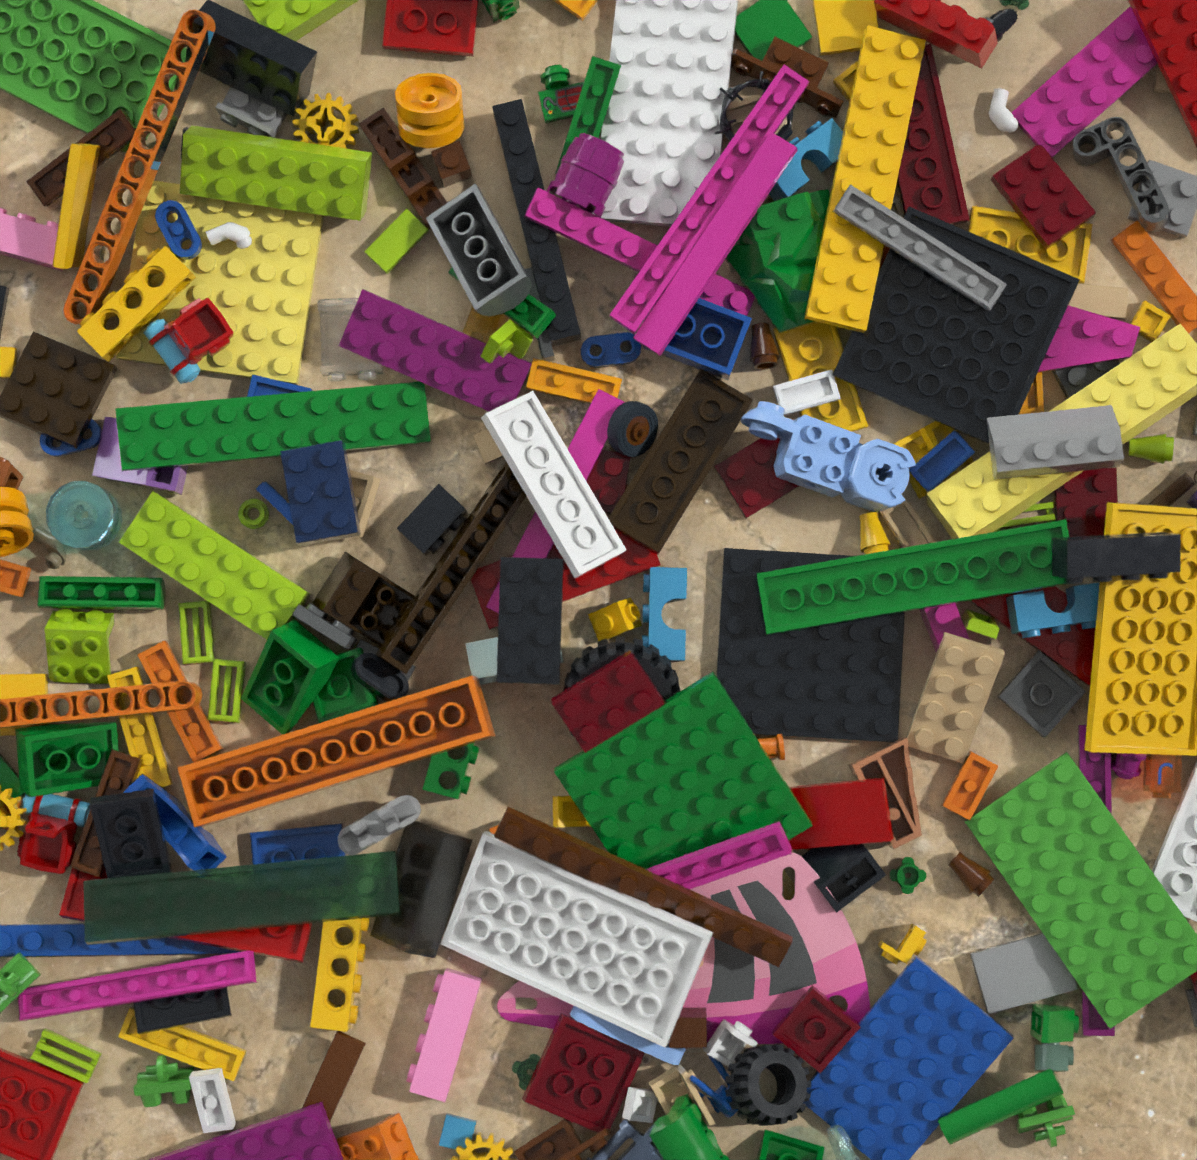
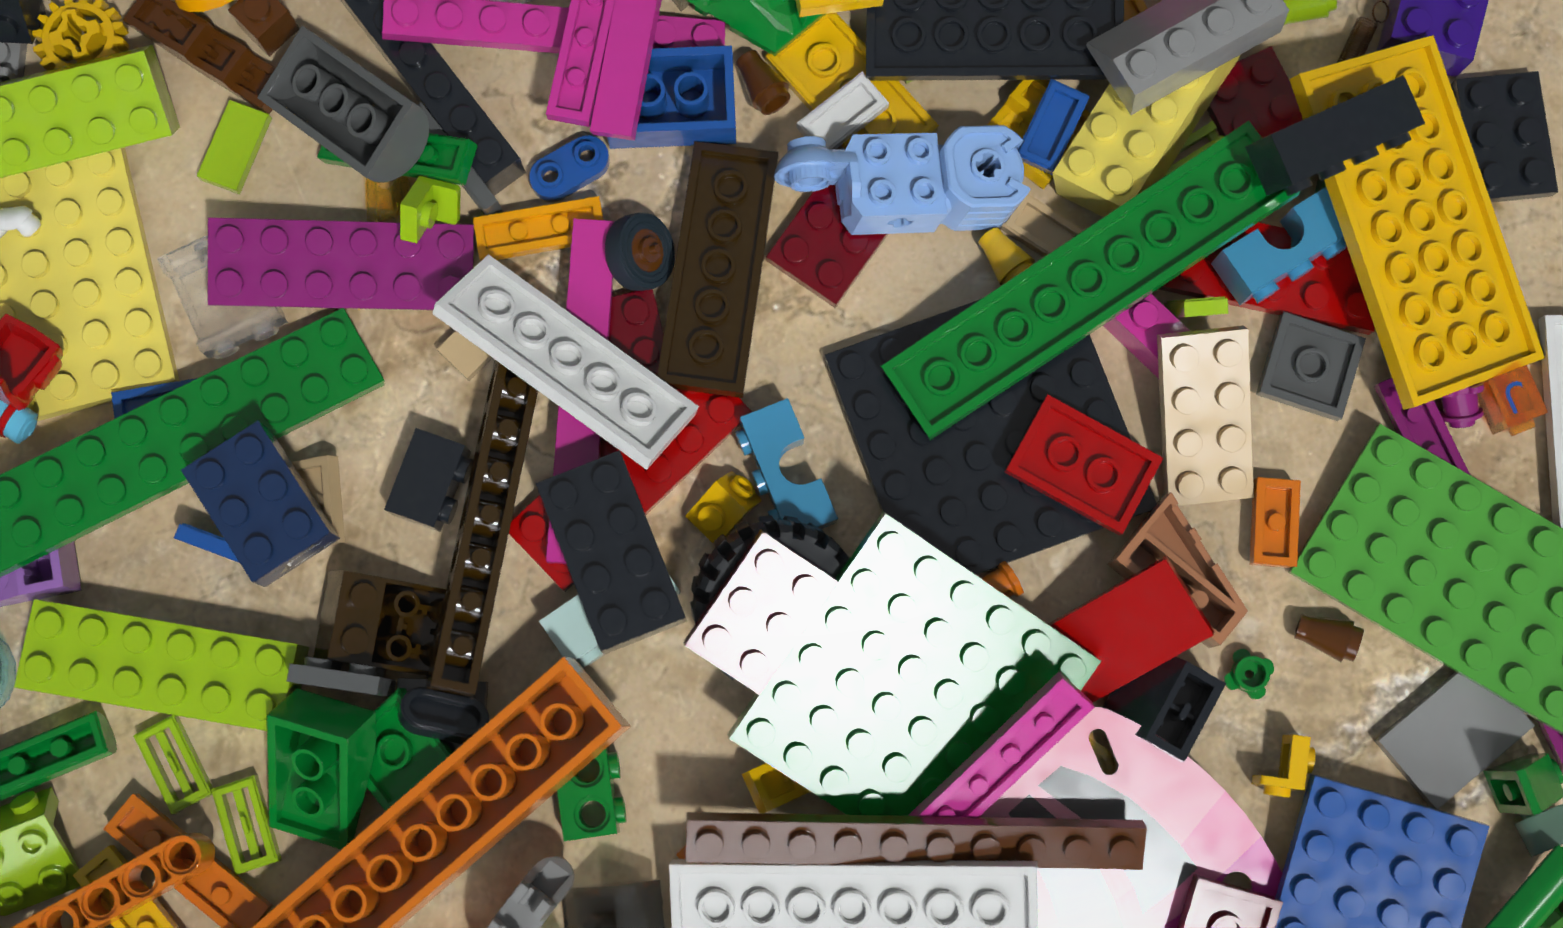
camera: 30 degrees left, 5 degrees down
(246, 507) = (175, 571): lime plate -> none
(859, 694) = (1084, 465): none -> red plate

